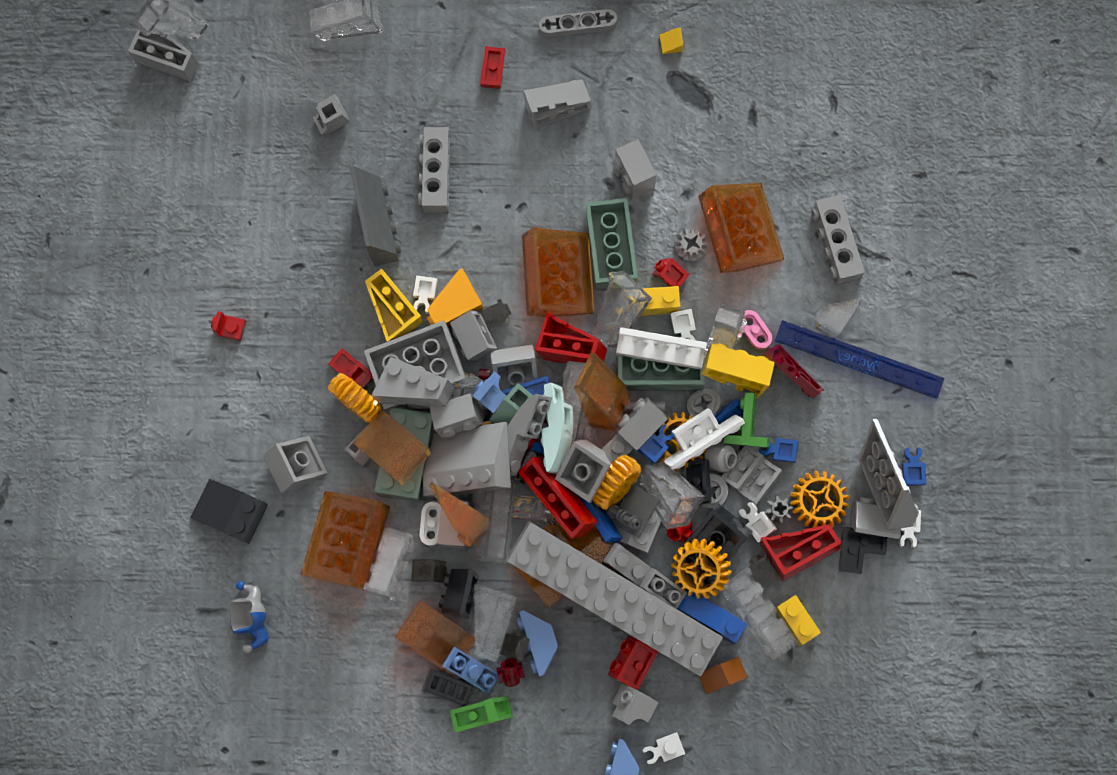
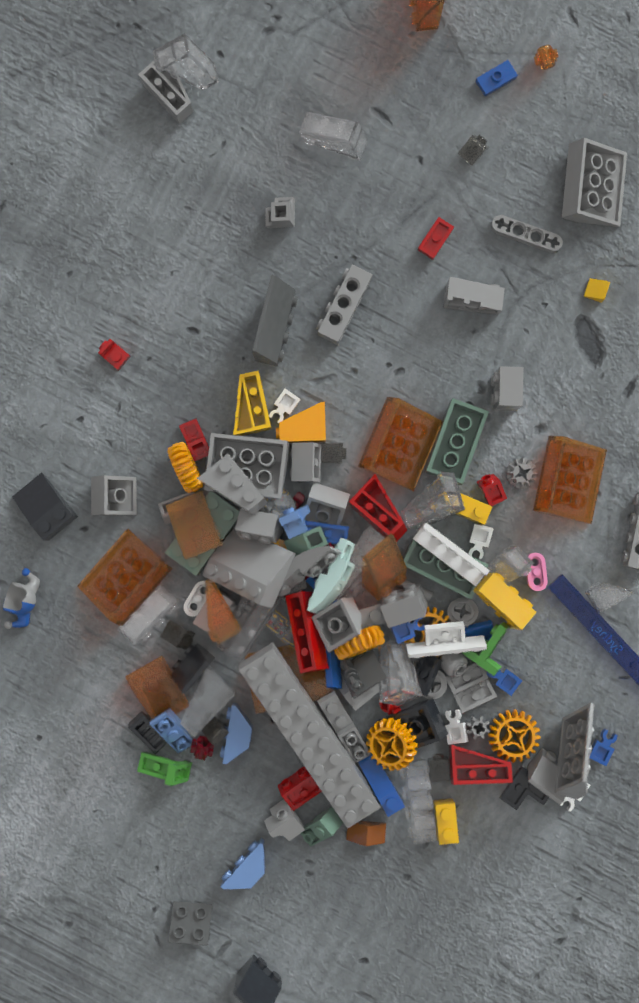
camera: 25 degrees right, 10 degrees up
(668, 747) = (295, 865): white plate -> none
(674, 692) = (321, 827): none -> sand green slope
(793, 370) = (548, 619): dark red wing -> none

